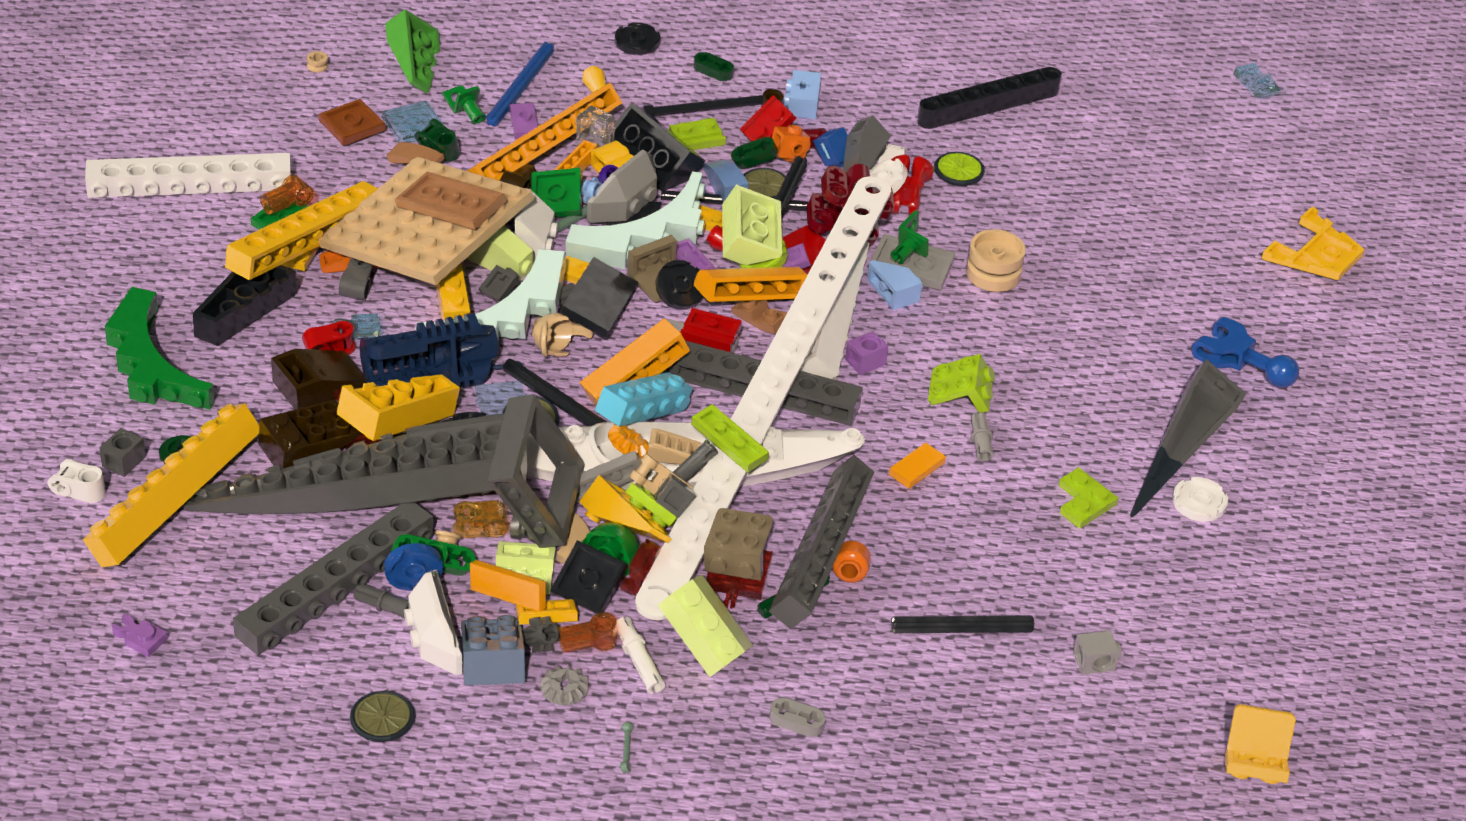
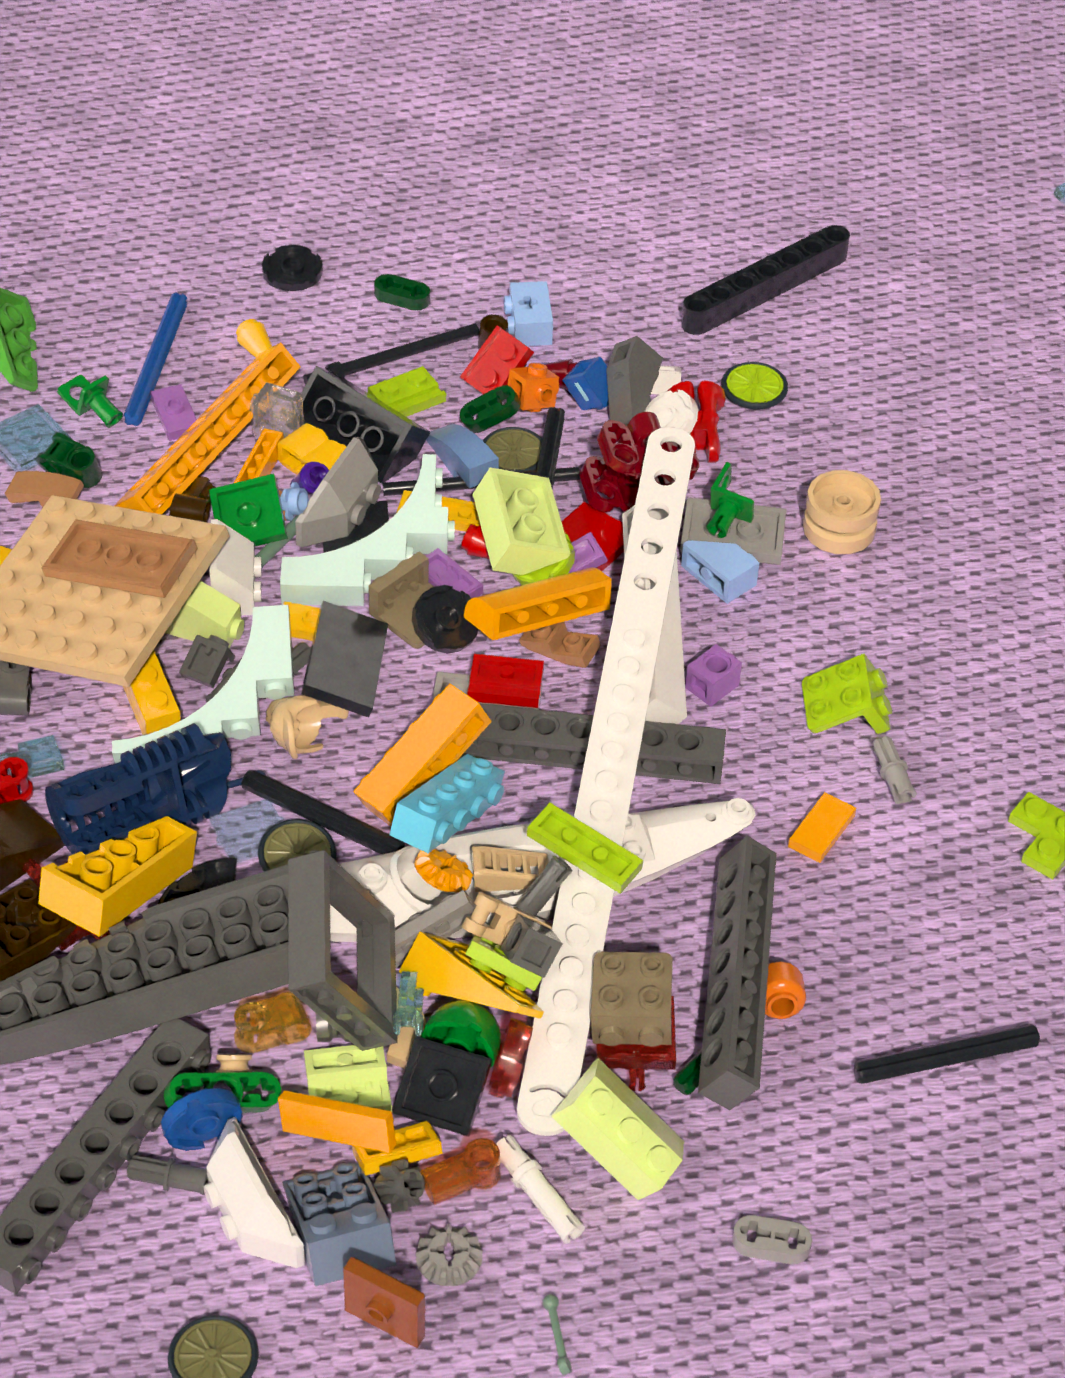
camera: 10 degrees left, 5 degrees up
(508, 700) = (384, 1302): none -> dark orange plate
(580, 520) = (409, 1004): none -> clear light blue plate

